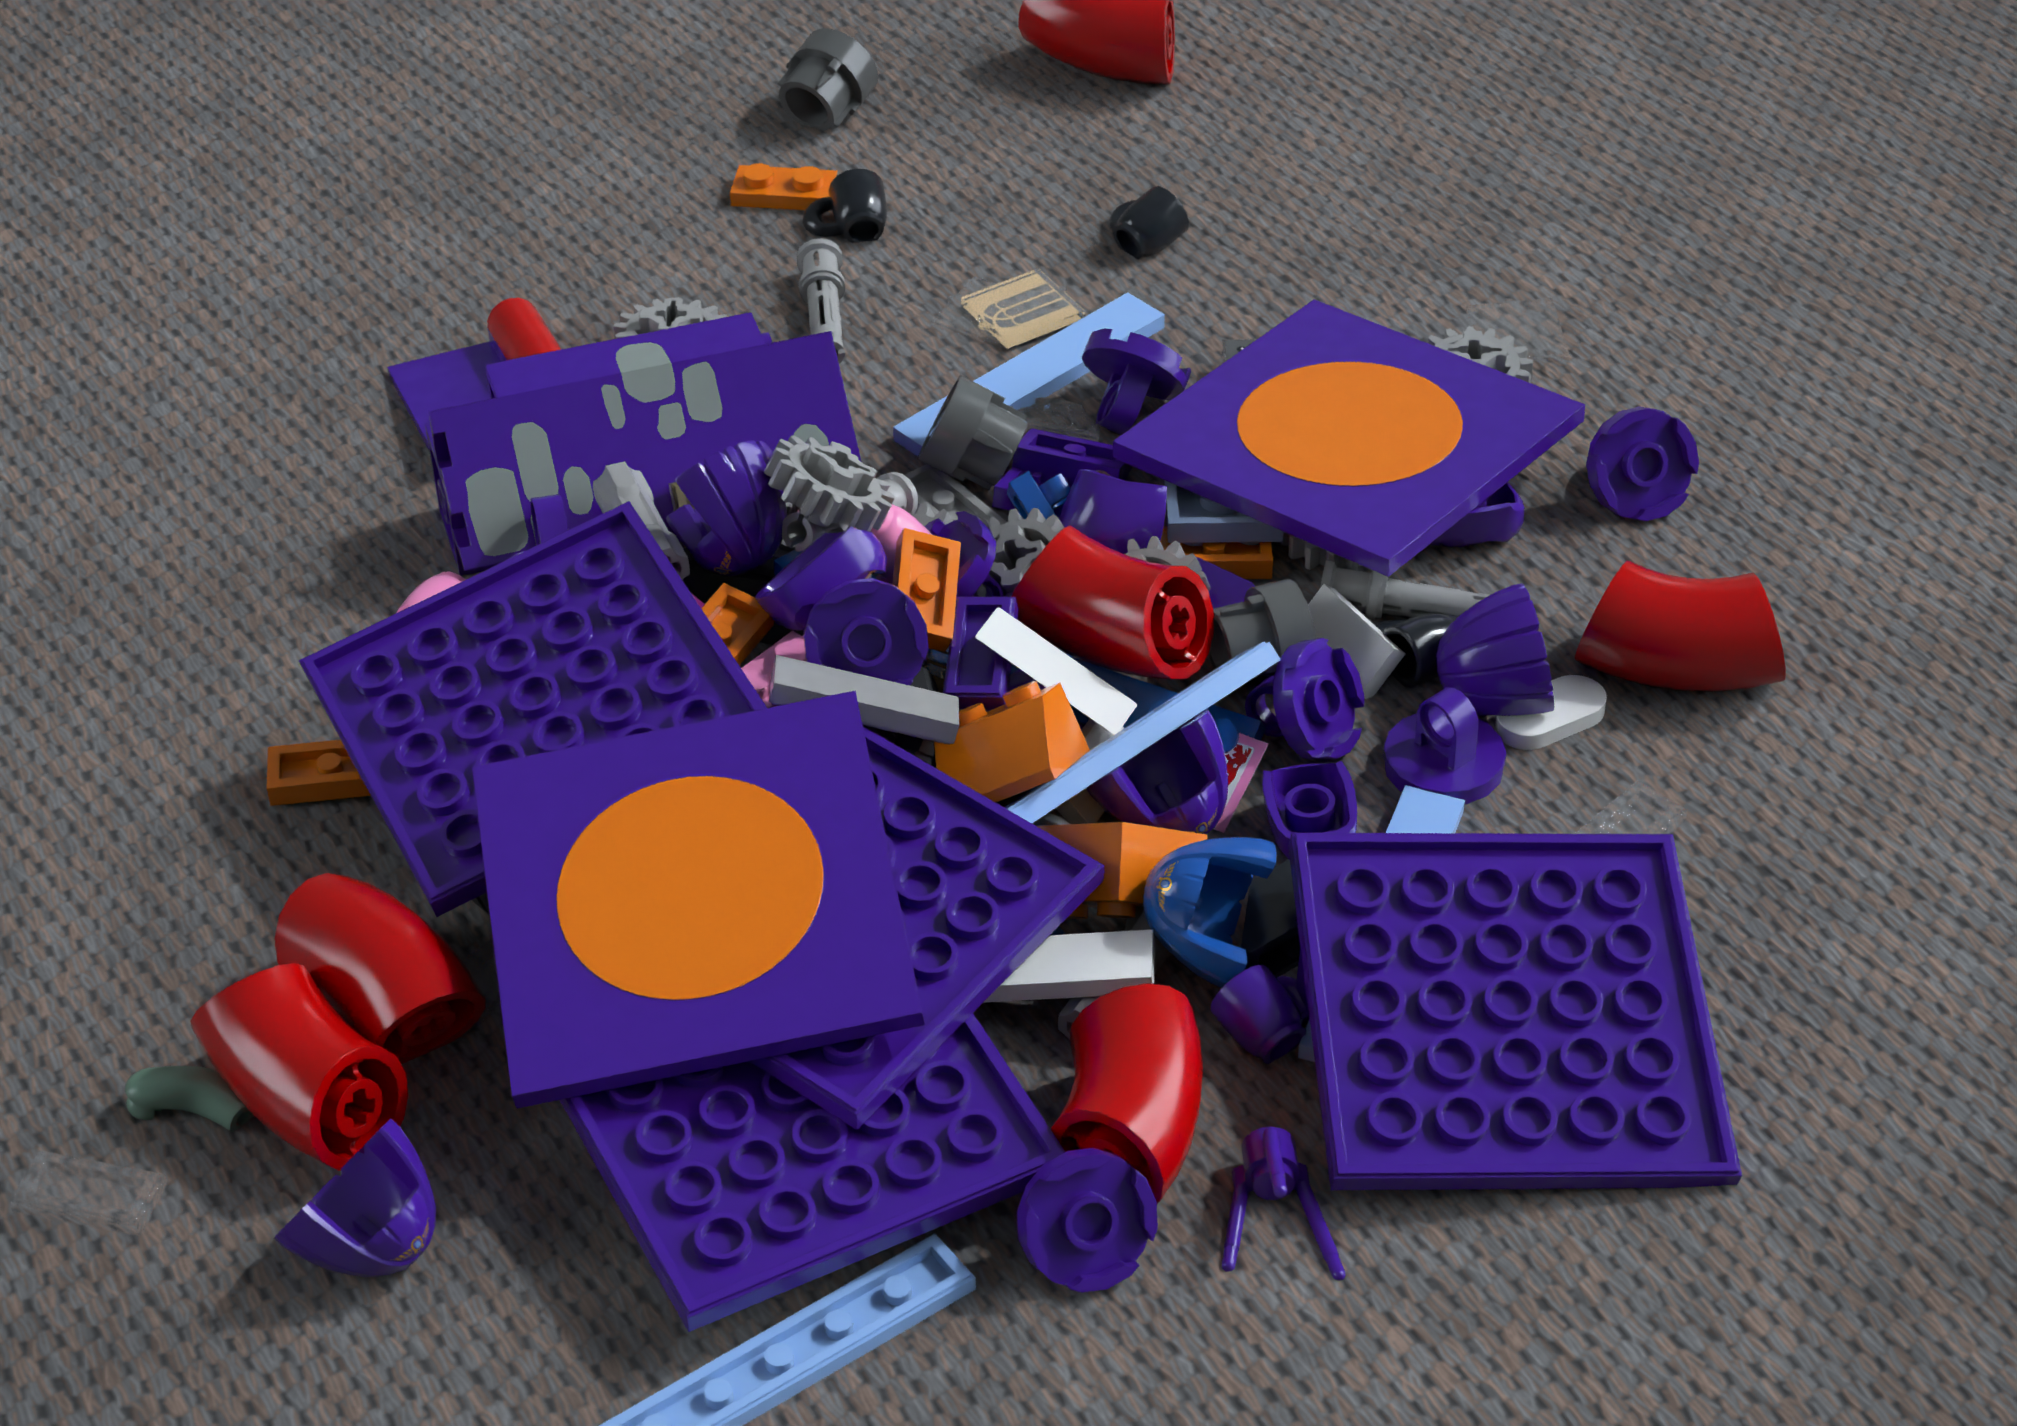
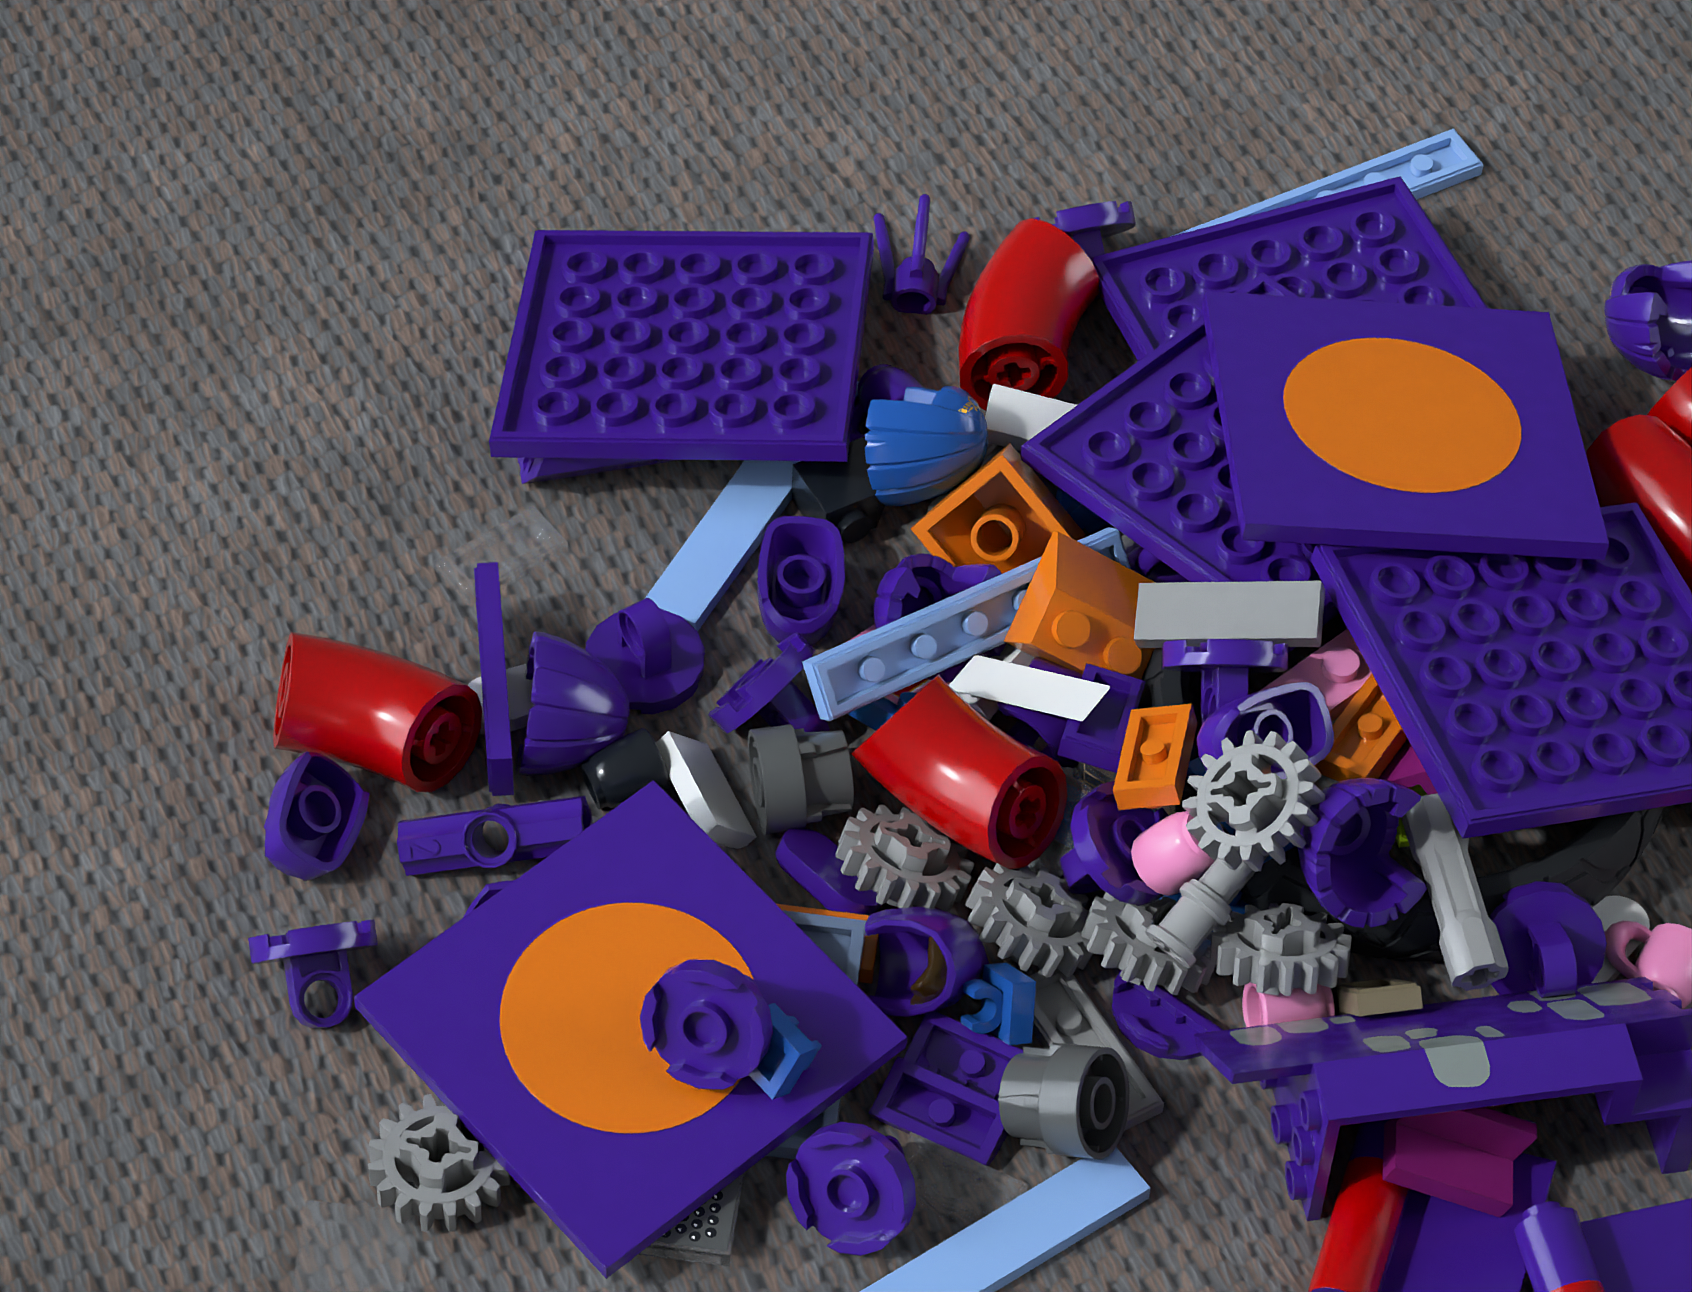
camera: 175 degrees left, 10 degrees up
(1216, 386) = (787, 1055): none -> blue tile
(1277, 369) = (707, 1023): none -> dark purple tile
(1522, 559) = (459, 843): none -> dark purple piece
(1582, 681) = (493, 679): none -> dark purple tile
(1693, 548) = (313, 817): none -> dark purple piece

